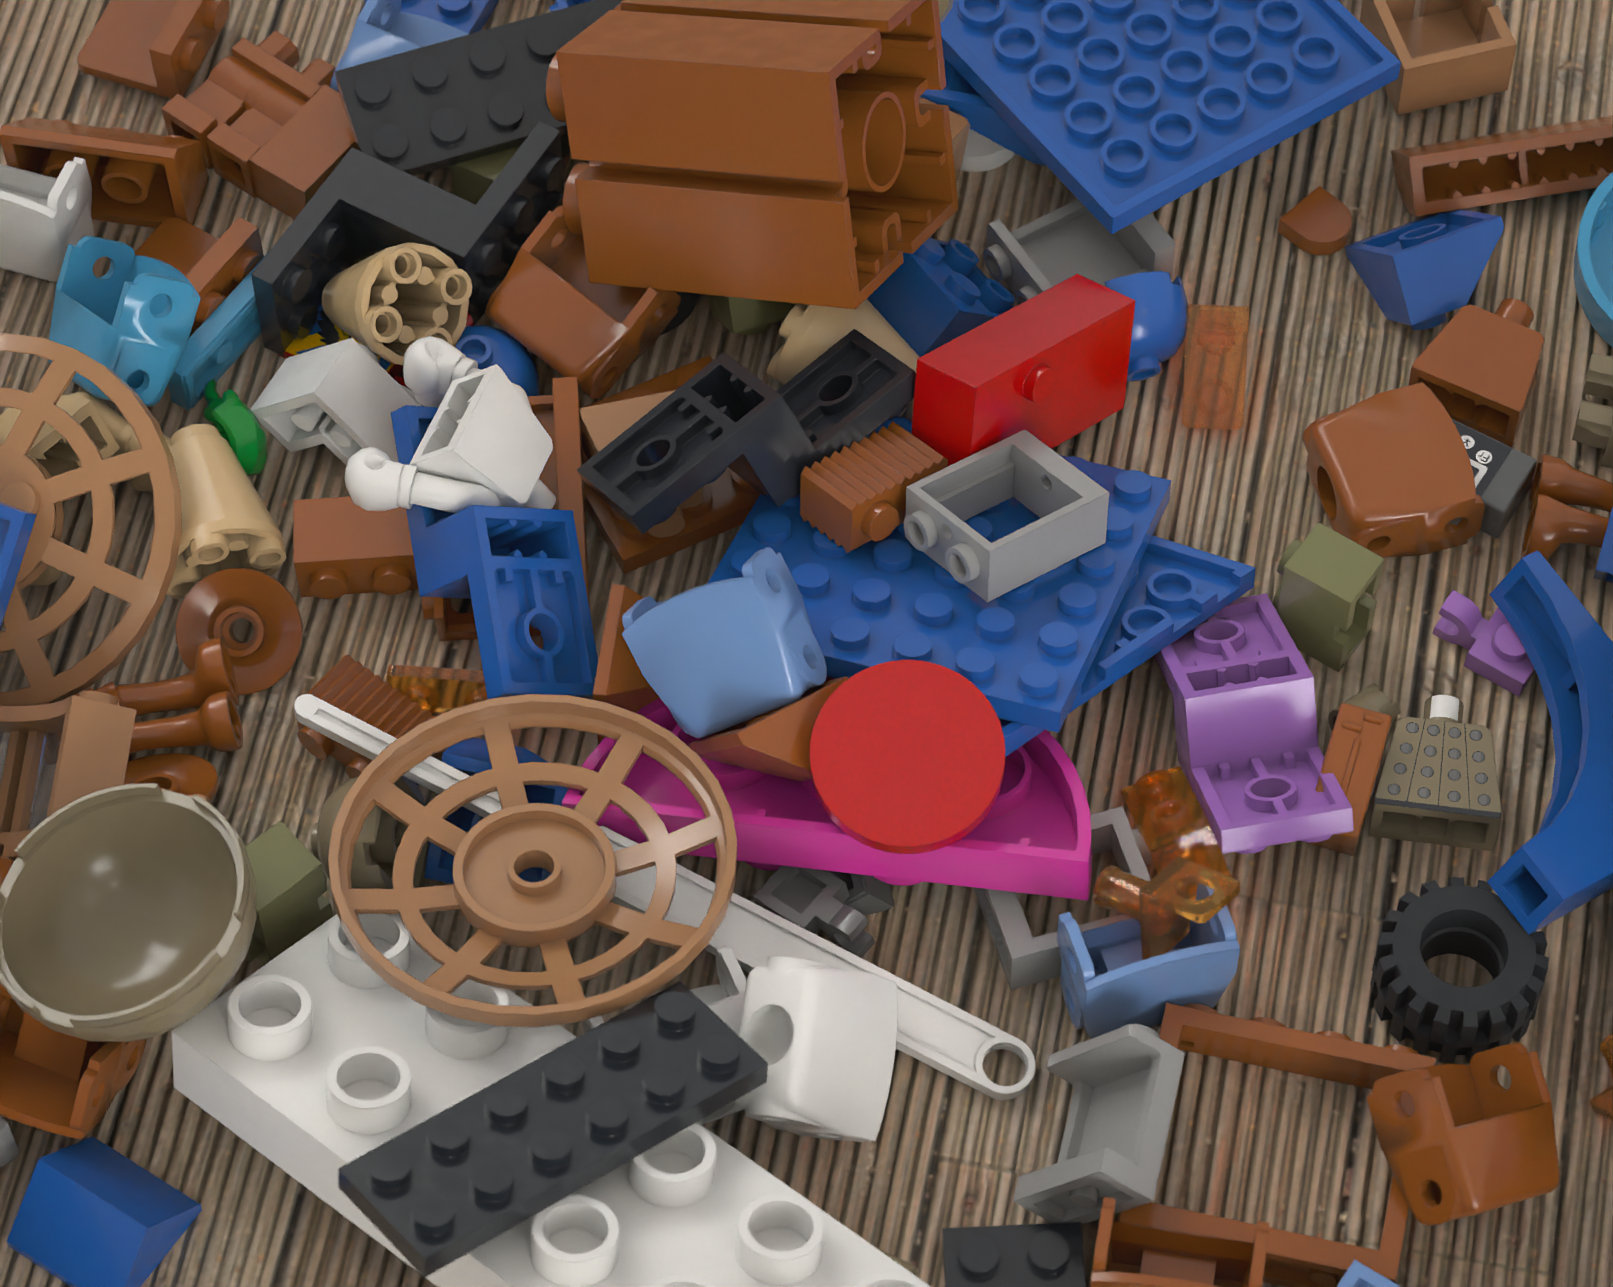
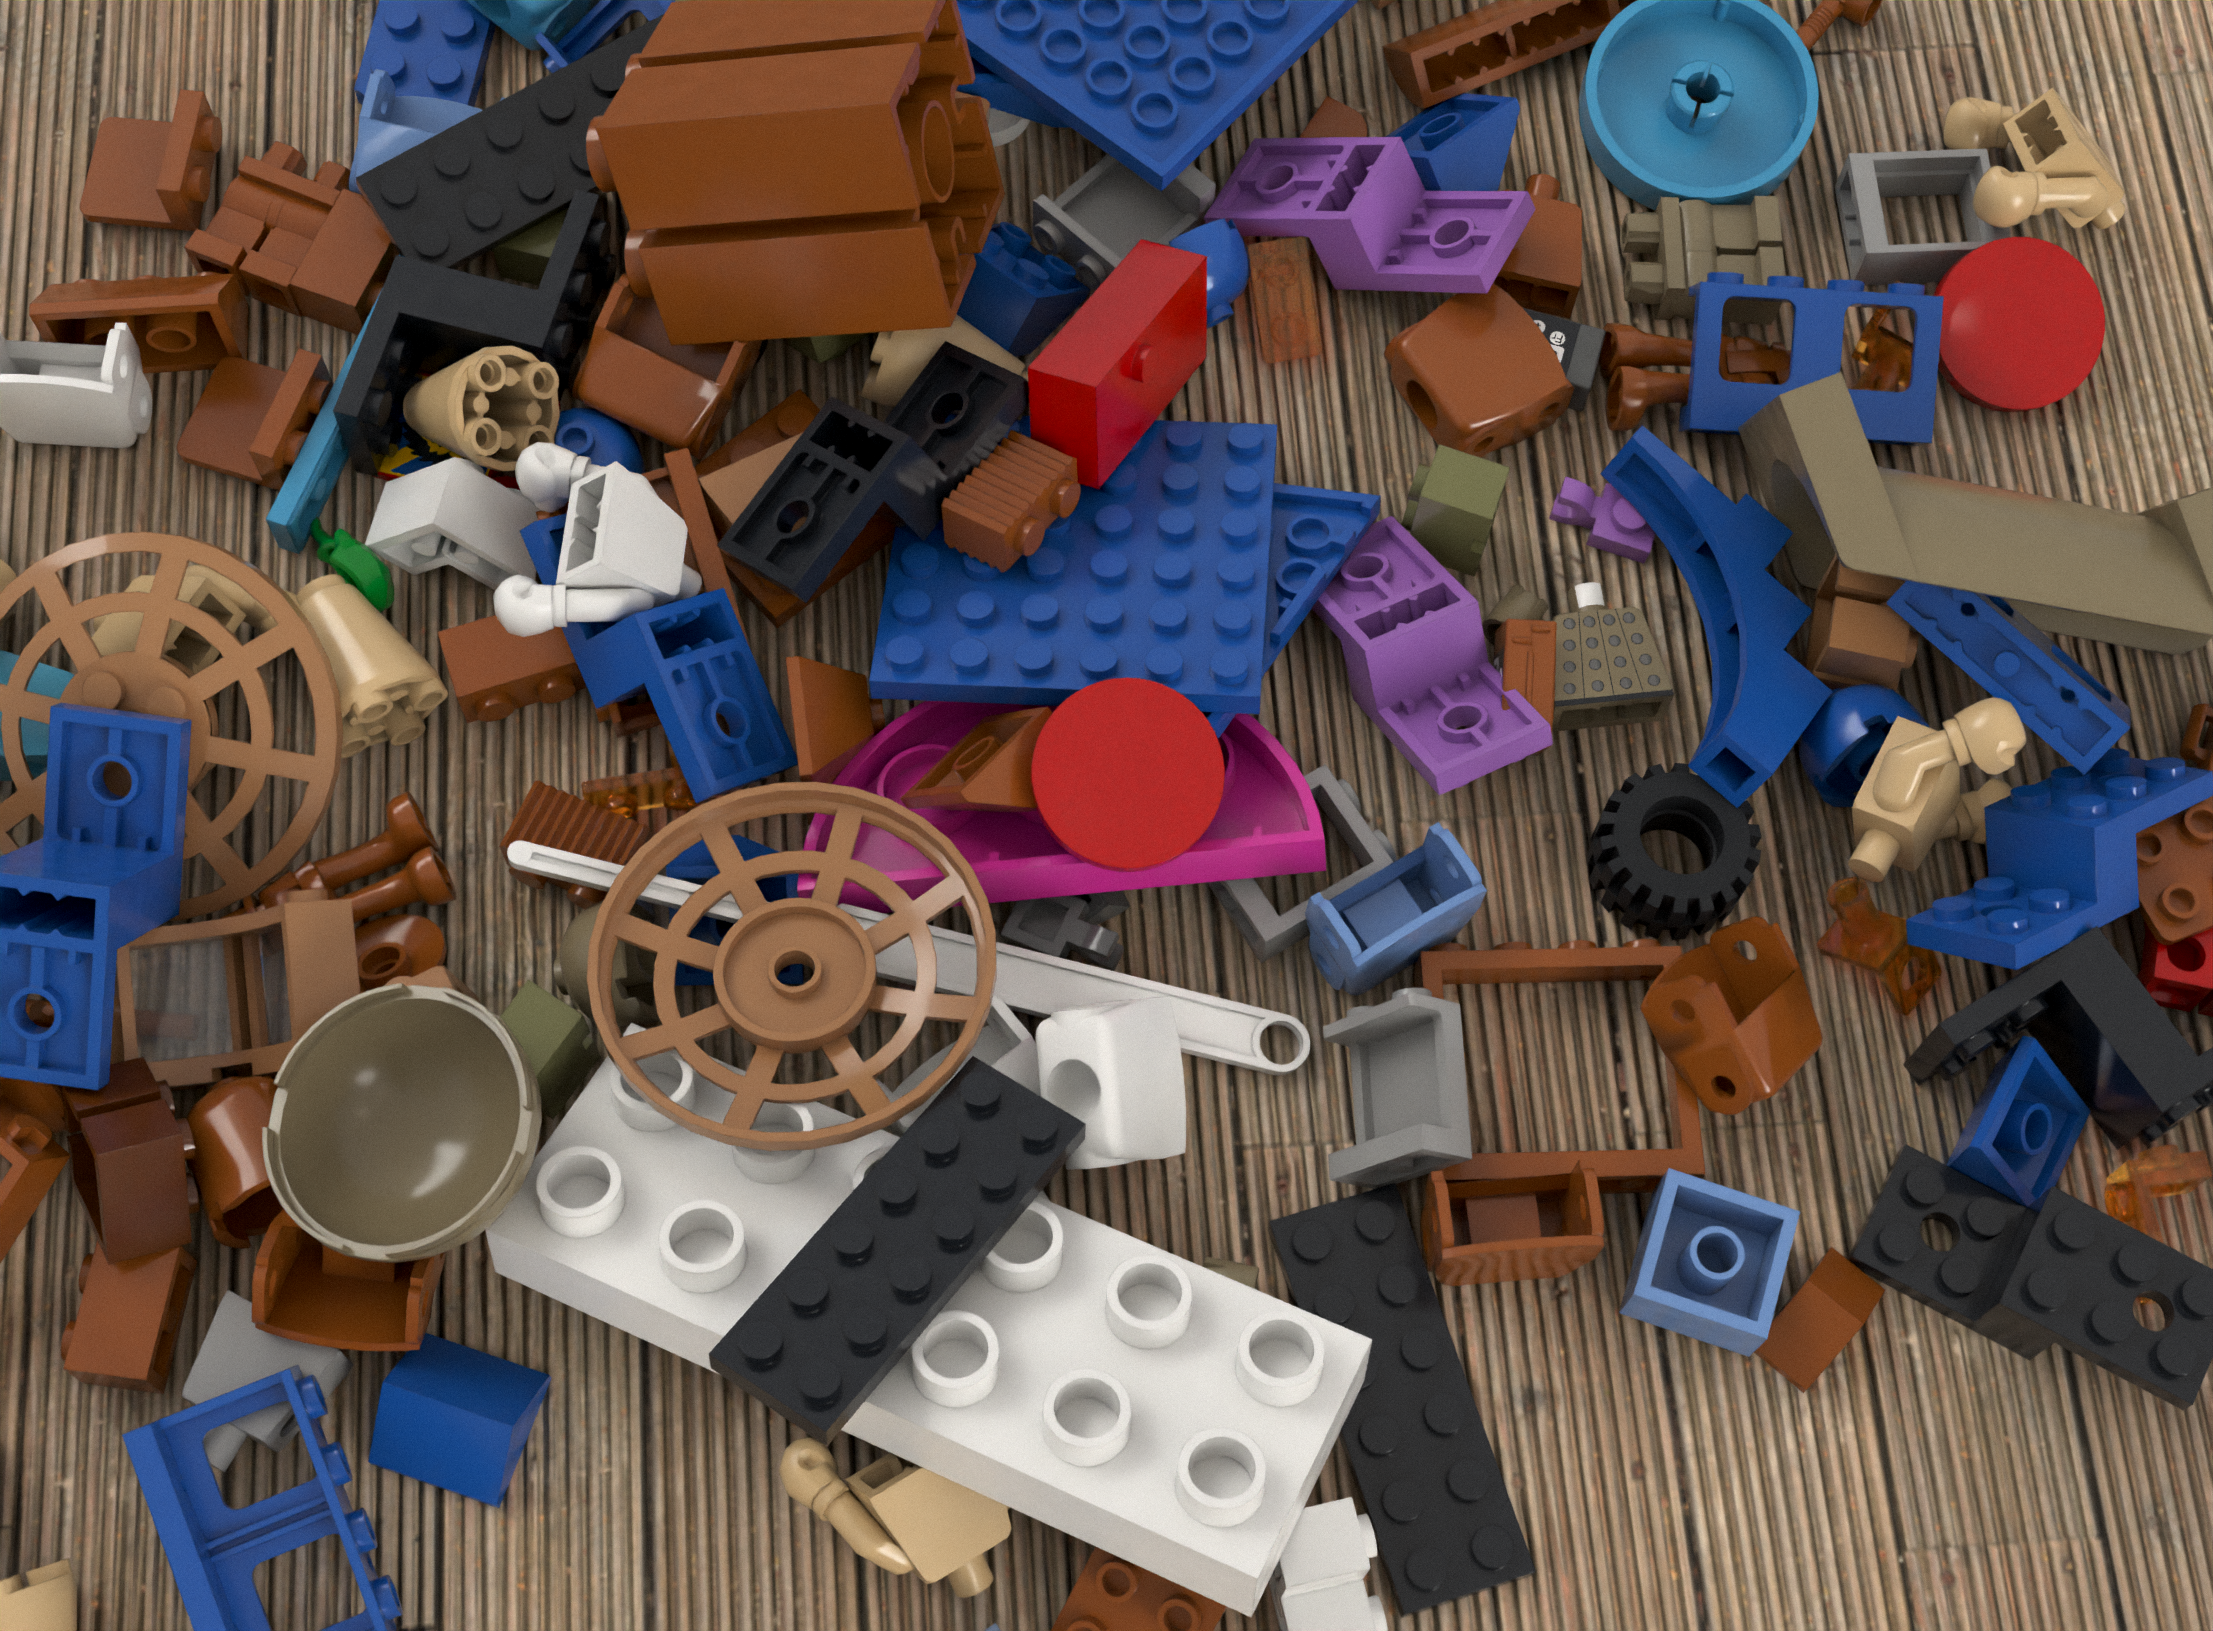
camera: 20 degrees left, 10 degrees up
(127, 319) = (213, 481): dark azure piece -> none
(250, 594) = (397, 745): dark orange dish -> none
(727, 647) = (923, 705): medium blue piece -> none
(1020, 467) = (1149, 451): light grey window -> none
(1164, 901) = (1399, 861): clear orange bracket -> none
(1173, 822) = (1378, 776): clear orange bracket -> none
(1325, 301) = (1372, 214): none -> medium lavender bracket

